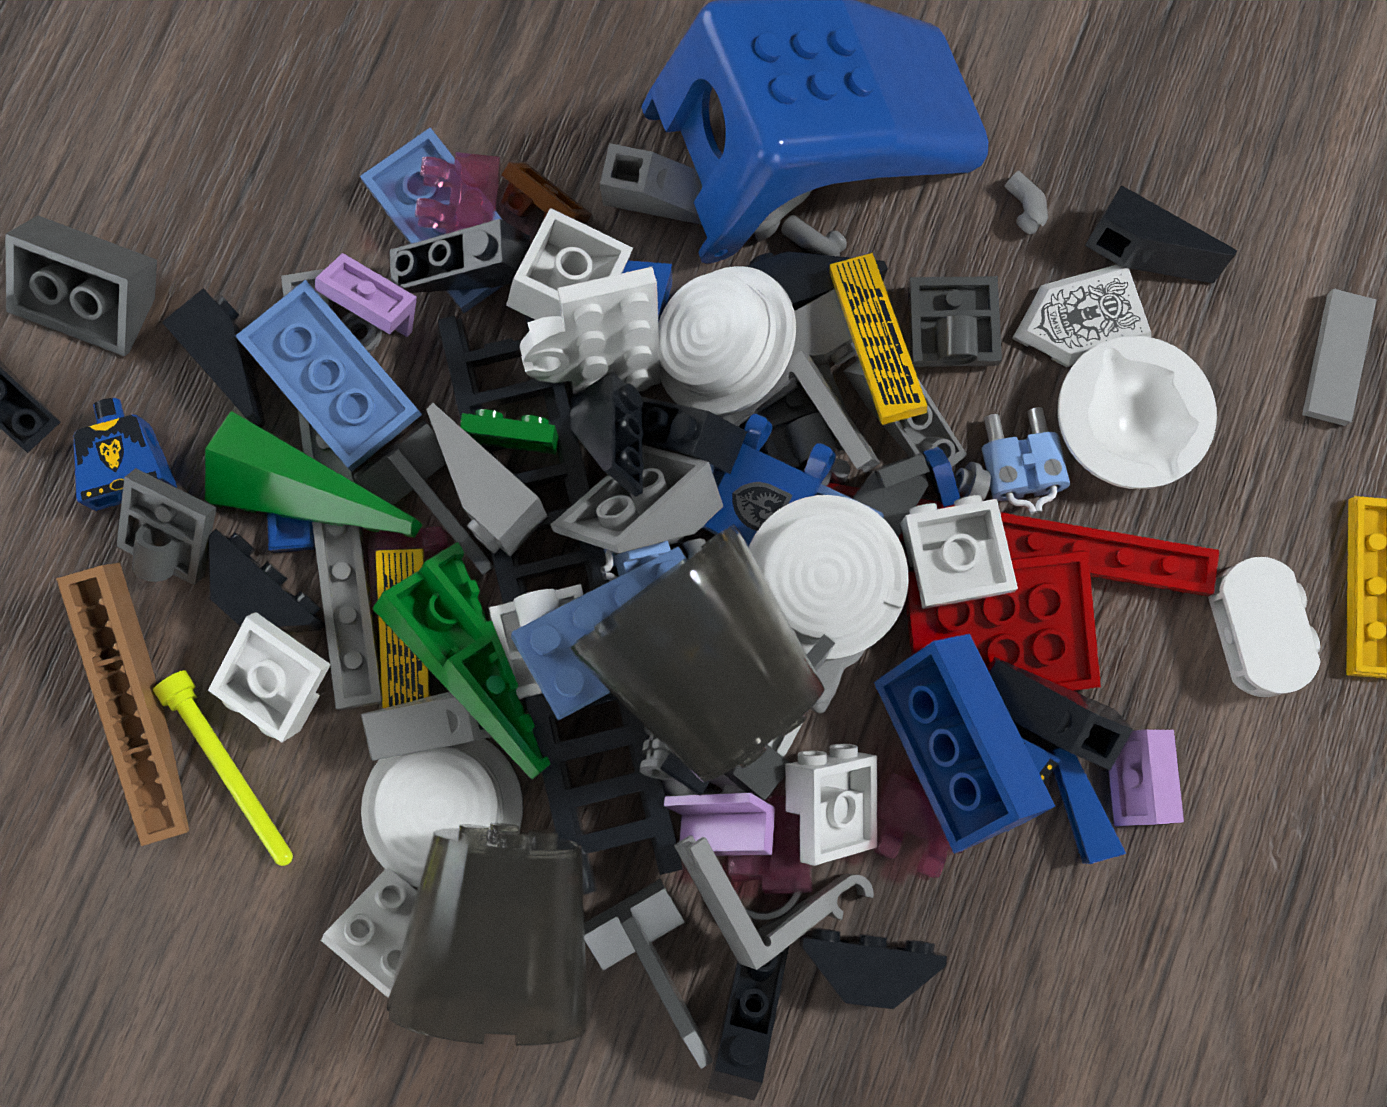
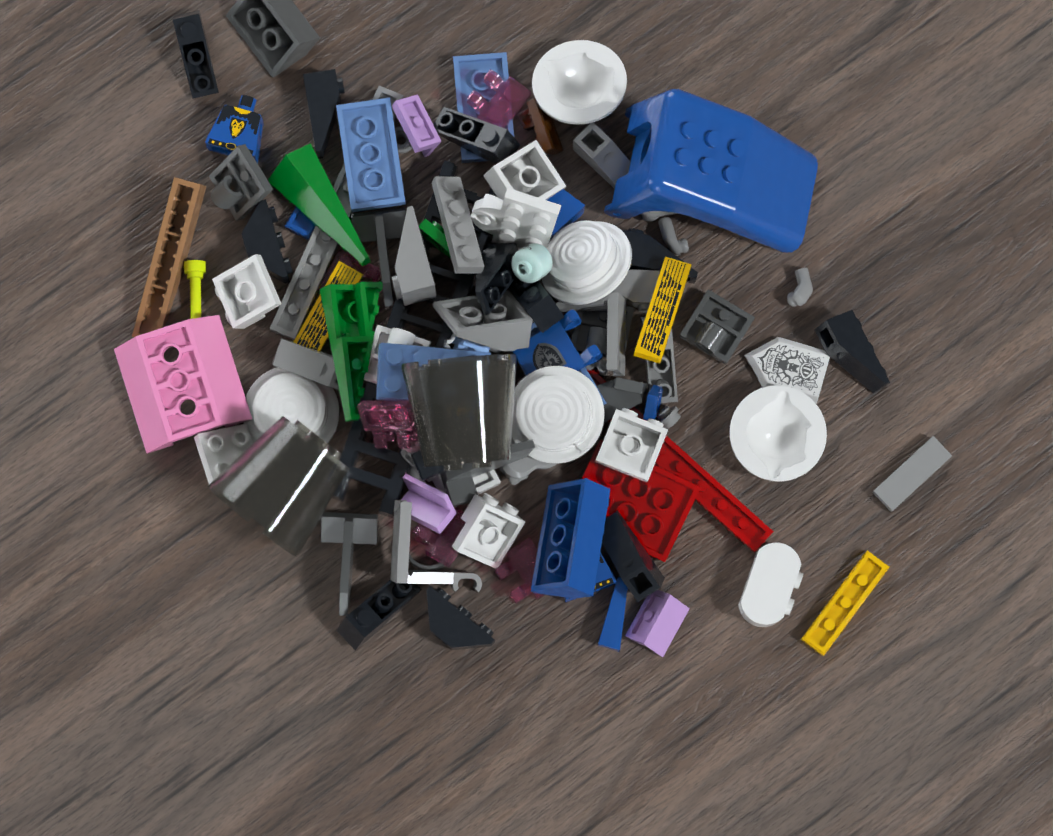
camera: 30 degrees right, 0 degrees up
(274, 839) = (200, 374): none -> bright pink slope
(516, 395) = (457, 225): none -> light grey plate
(557, 105) = (579, 82): none -> white piece
(589, 736) = (386, 417): none -> clear pink plate
(654, 383) = (531, 263): none -> light aqua head
(1025, 465) = (703, 425): light blue piece -> none

